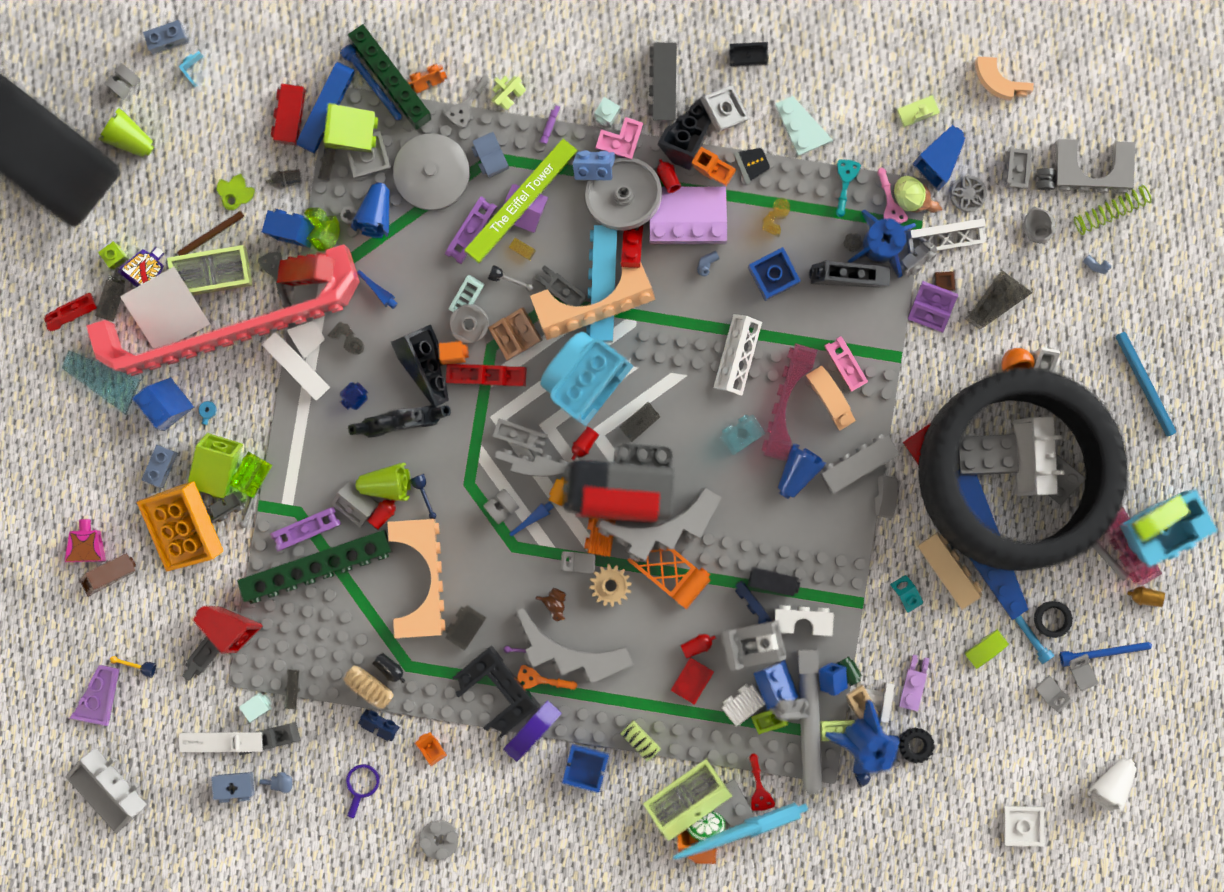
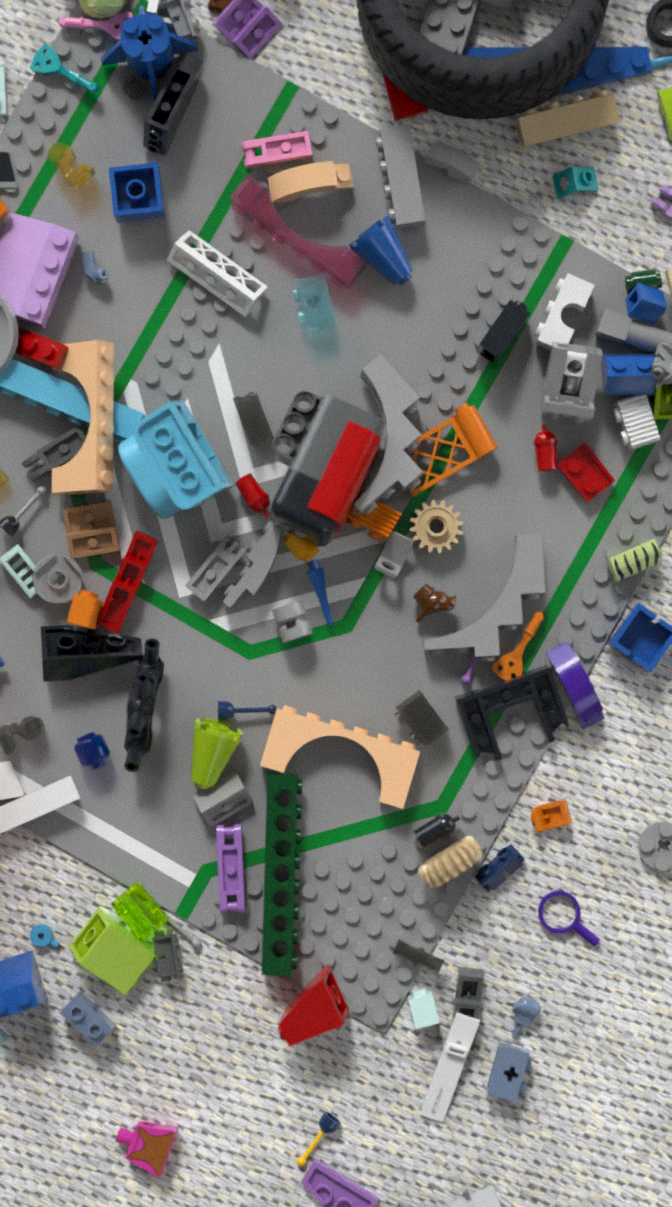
camera: 70 degrees left, 0 degrees up
(107, 574) = (195, 1131): reddish brown slope -> none
(180, 527) = (171, 1020): light orange slope -> none
(200, 658) = (339, 1054): dark grey hinge -> none
(382, 513) = (247, 769): red piece -> none
(754, 605) = (524, 365): dark blue hinge -> none

